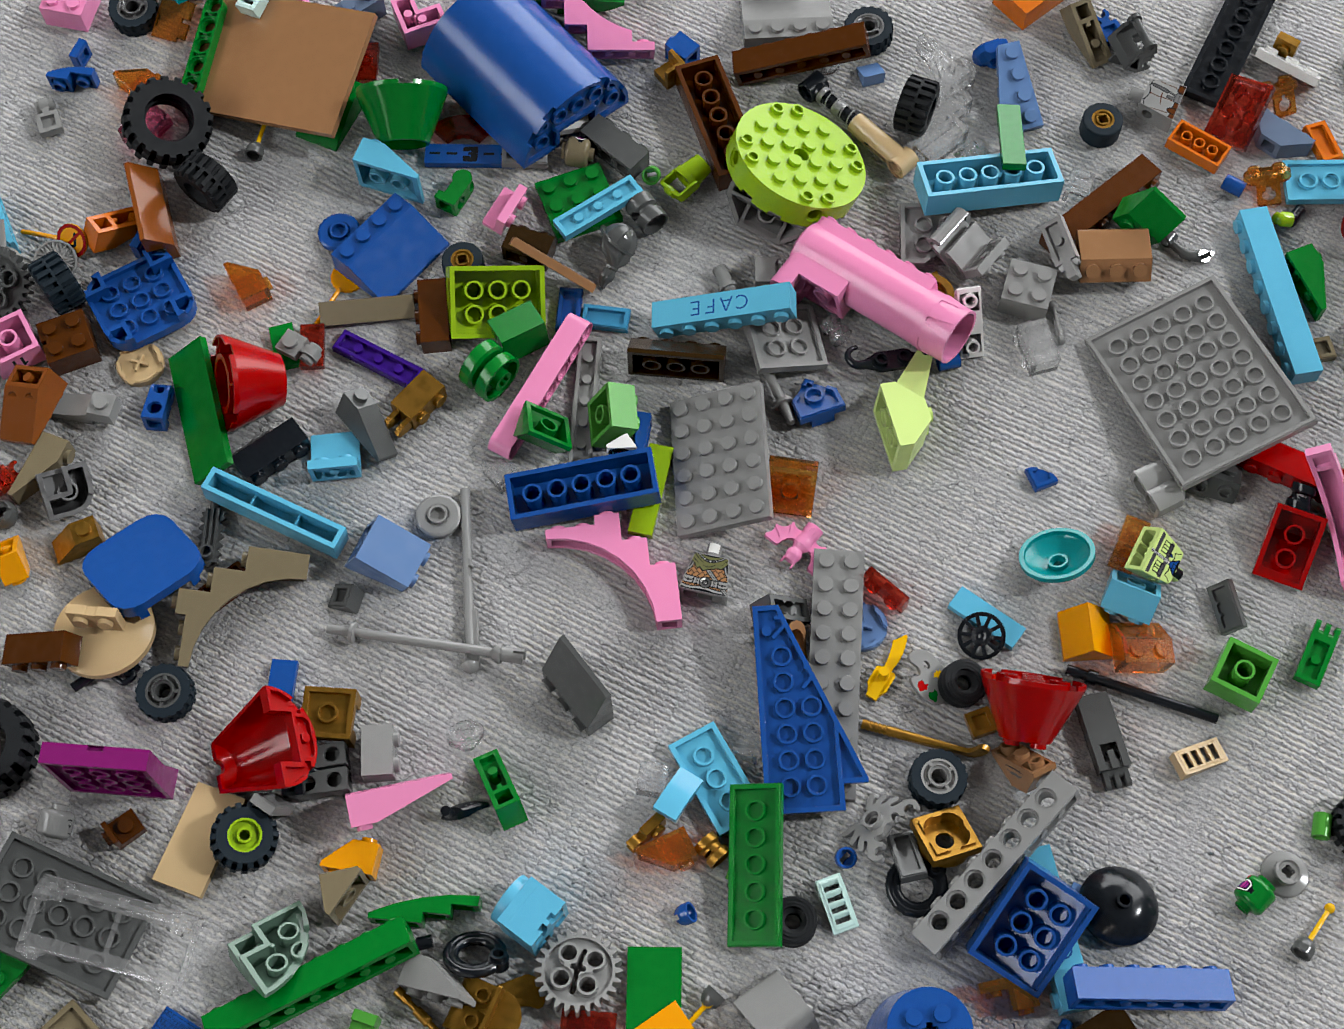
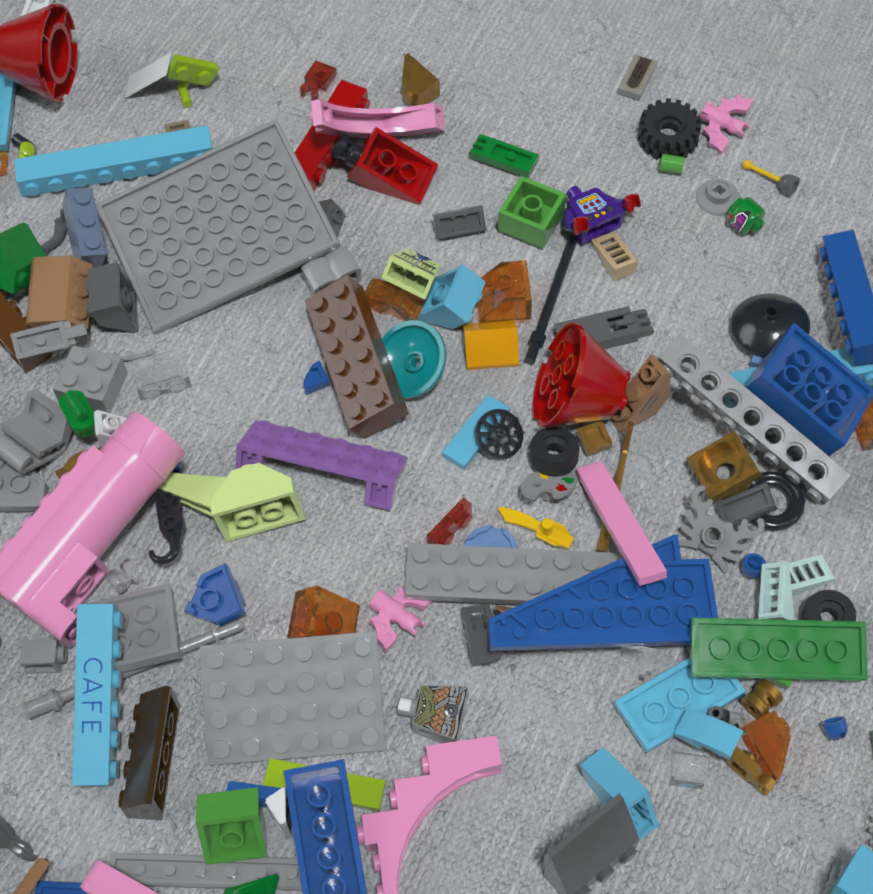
camera: 90 degrees left, 5 degrees down
(607, 318) = (81, 849): dark azure tile -> none
(629, 719) = (609, 779): none -> medium azure slope
(698, 814) = (730, 717): none -> arm
(810, 871) = (784, 592): none -> light aqua slope
(881, 732) = (621, 524): none -> bright pink tile
(948, 768) = (657, 492): black wheel -> none
(954, 484) = (332, 455): none -> medium lavender bracket
(986, 276) = (78, 412): none -> green piece
(1058, 507) = (356, 357): none -> brick
(1111, 299) = (112, 298): none -> dark grey slope
(1190, 270) = (84, 226): none -> sand blue brick
(1244, 735) = (595, 213): none -> dark purple torso
(1308, 278) = (96, 131): green slope -> none

